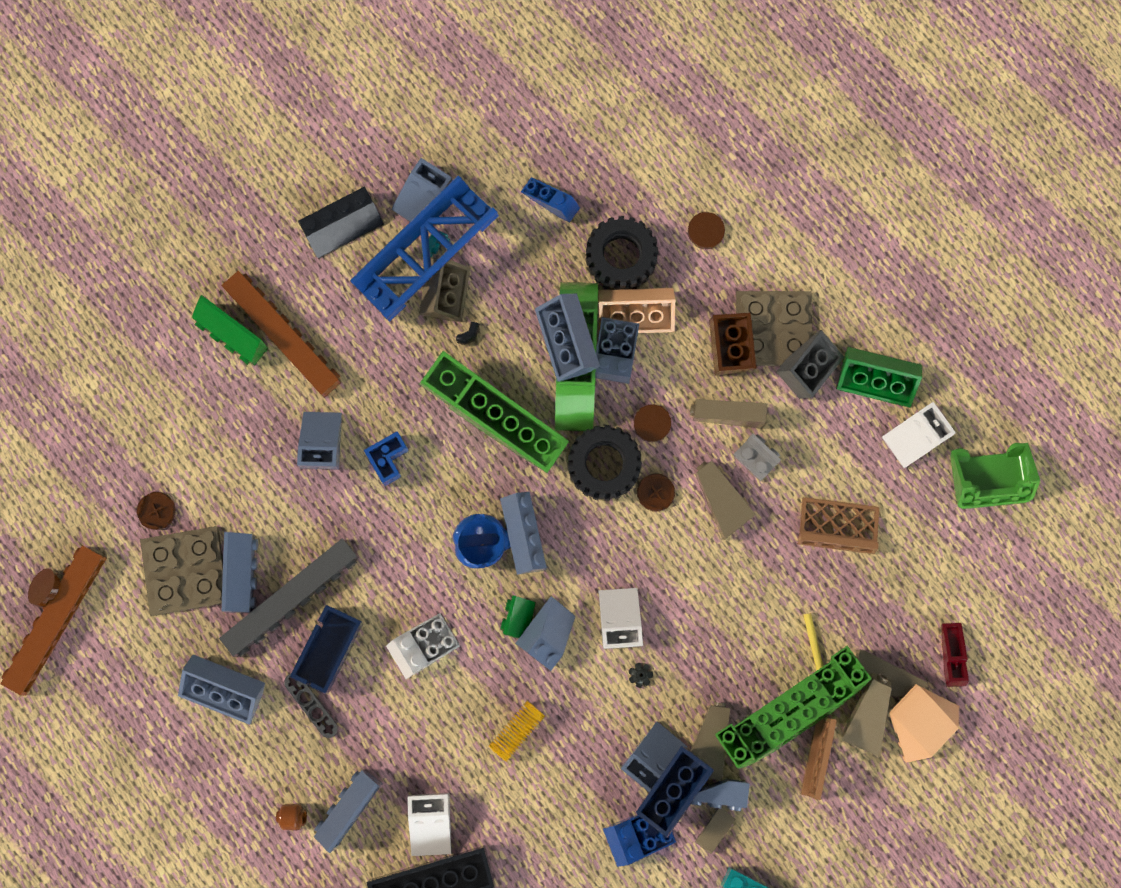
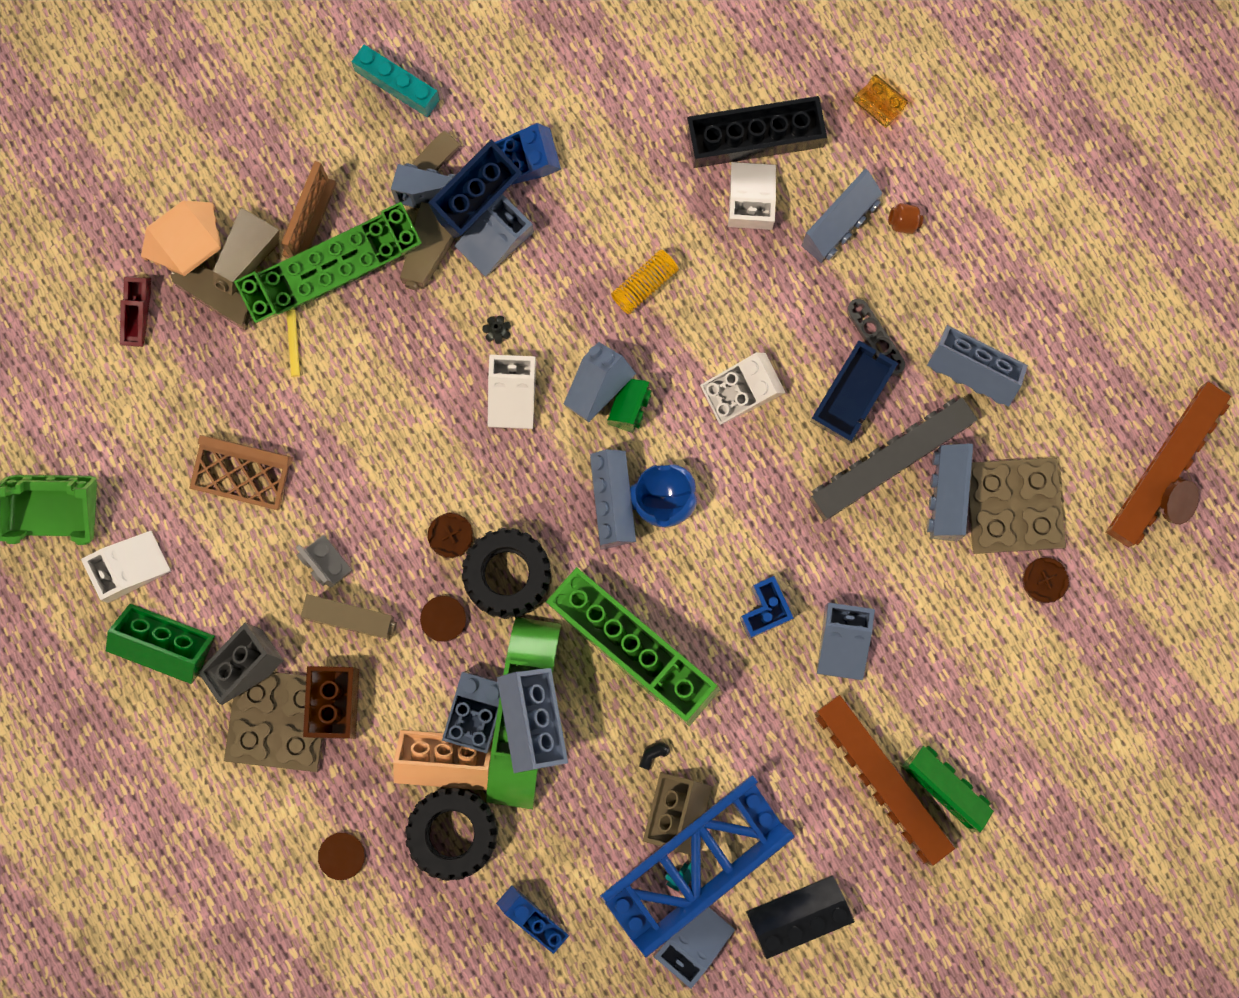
camera: 175 degrees left, 0 degrees up
(724, 501) = (370, 511): dark tan slope -> none

